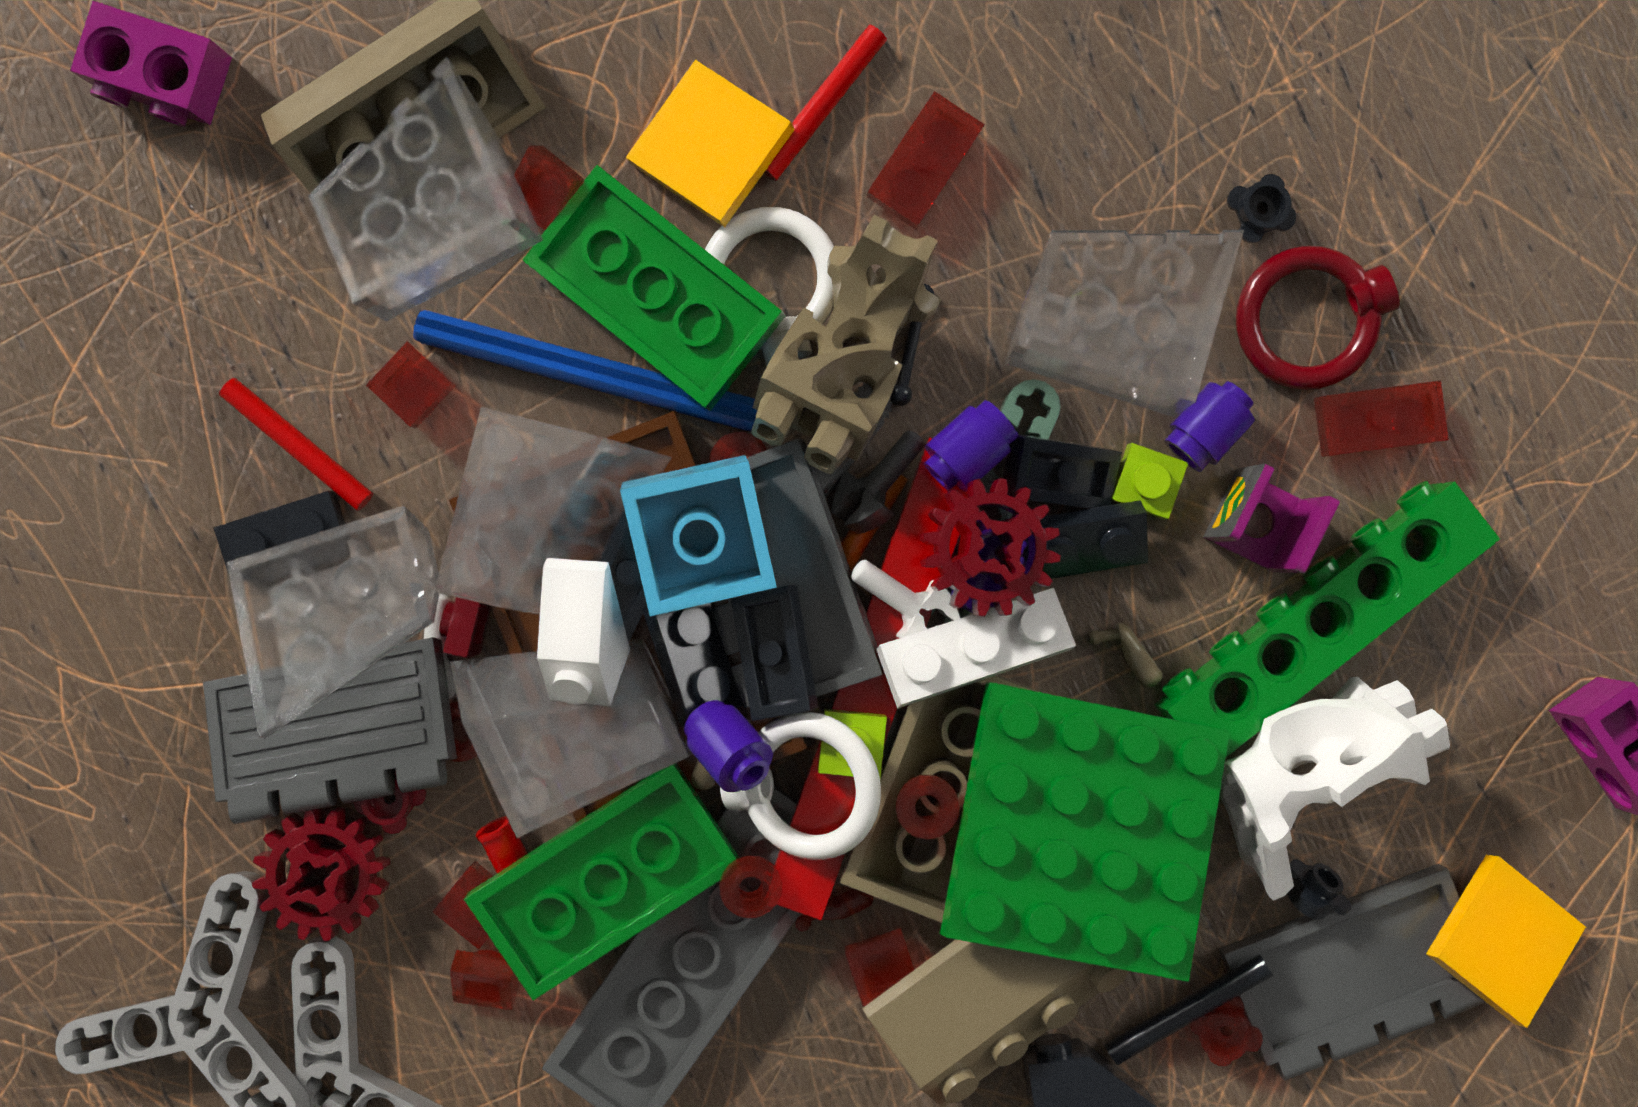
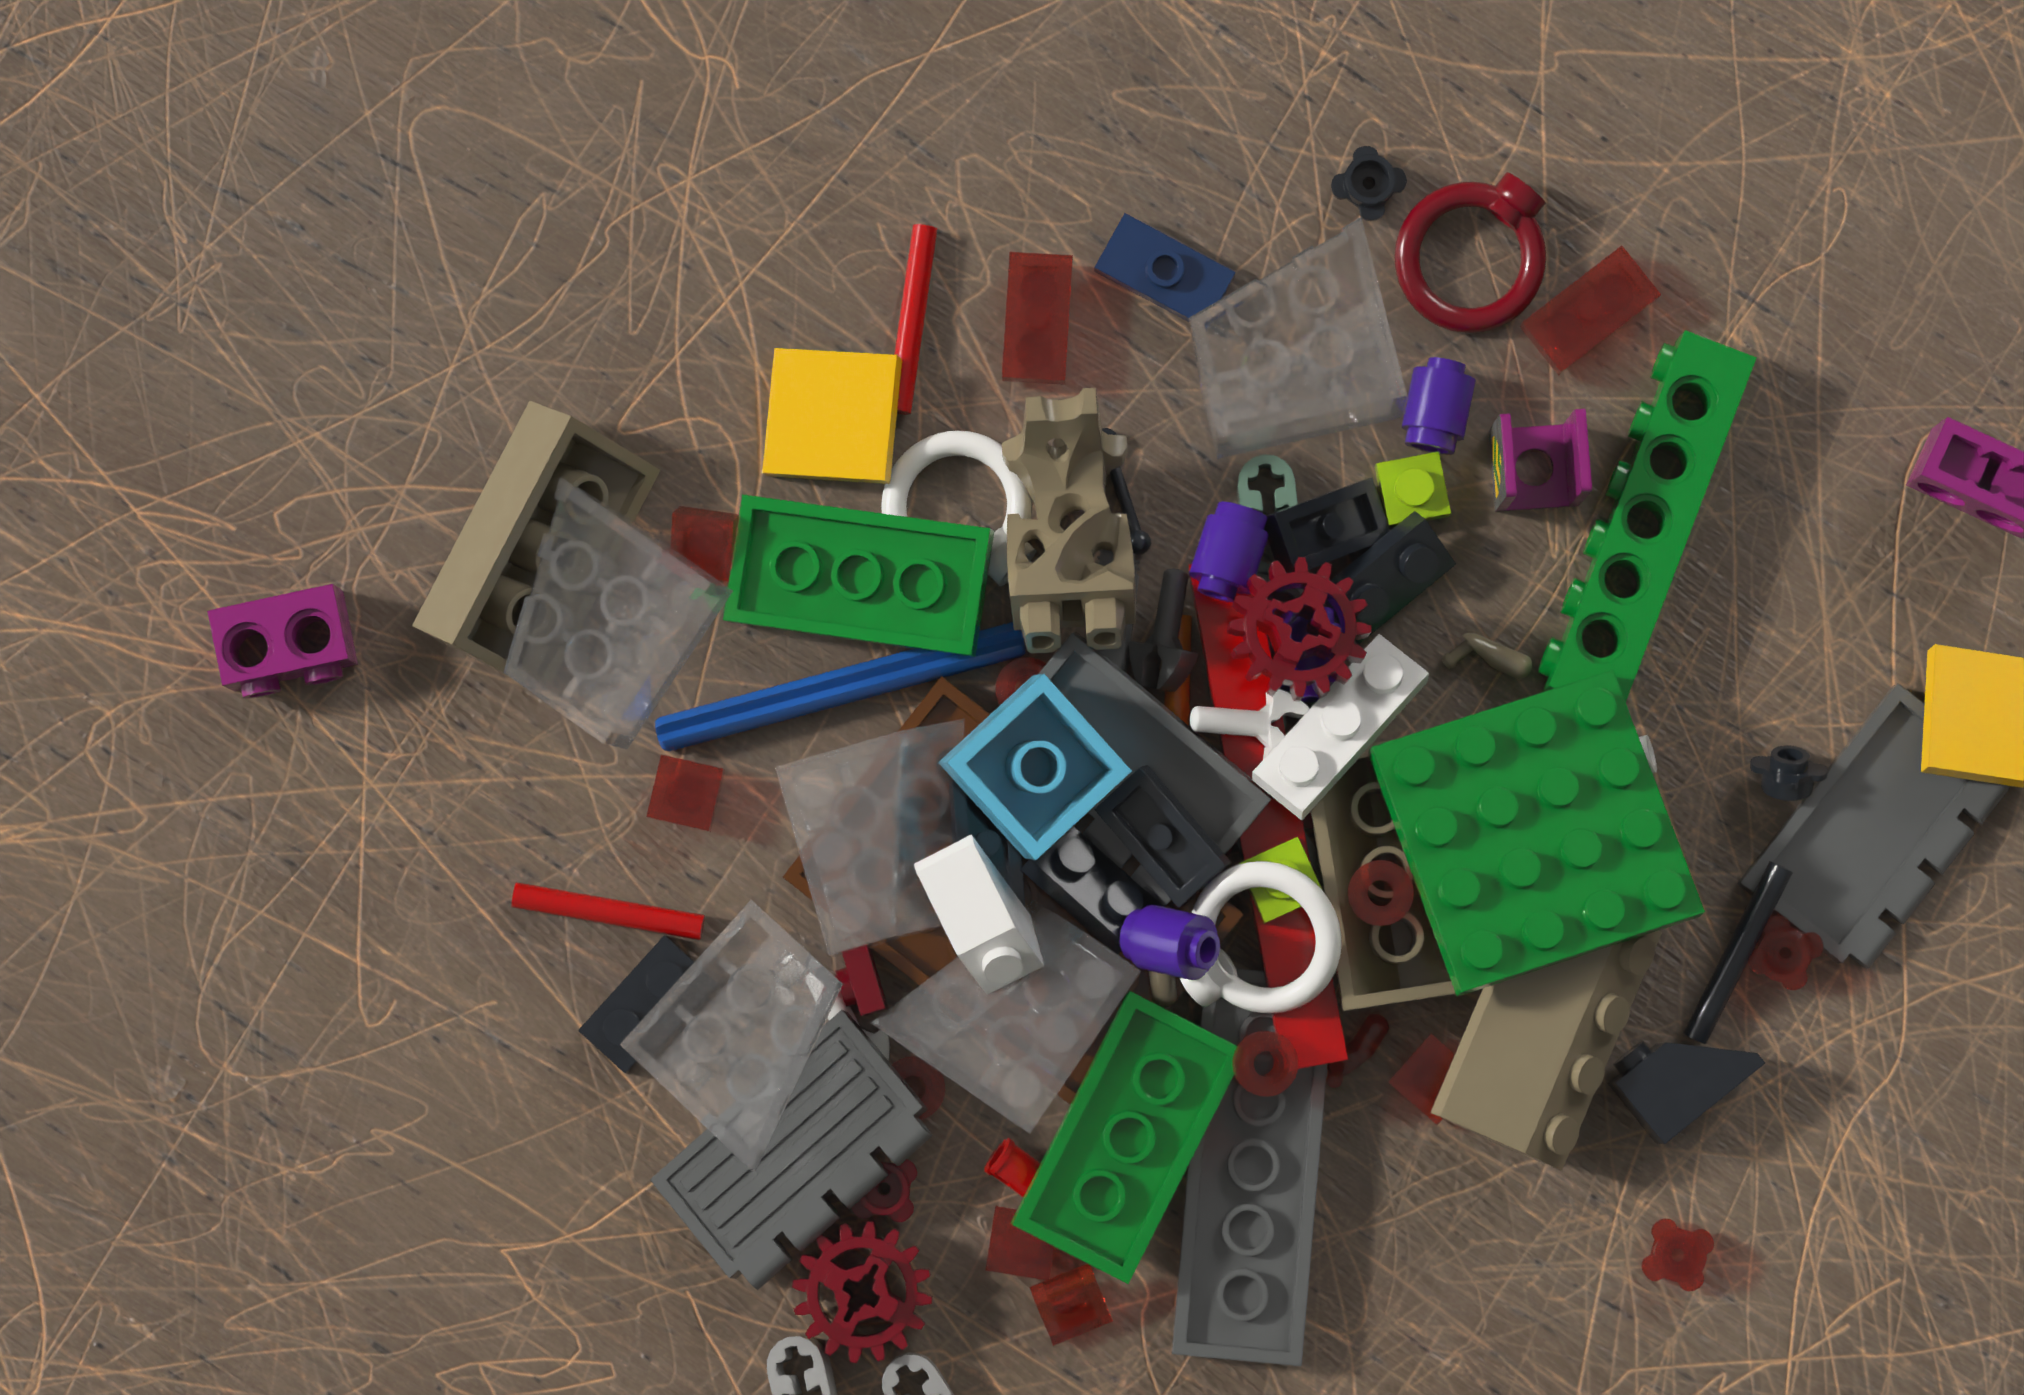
camera: 25 degrees left, 5 degrees down
(1050, 179) = (1162, 269): none -> dark blue plate
(1354, 741) = (1722, 625): white hips -> none

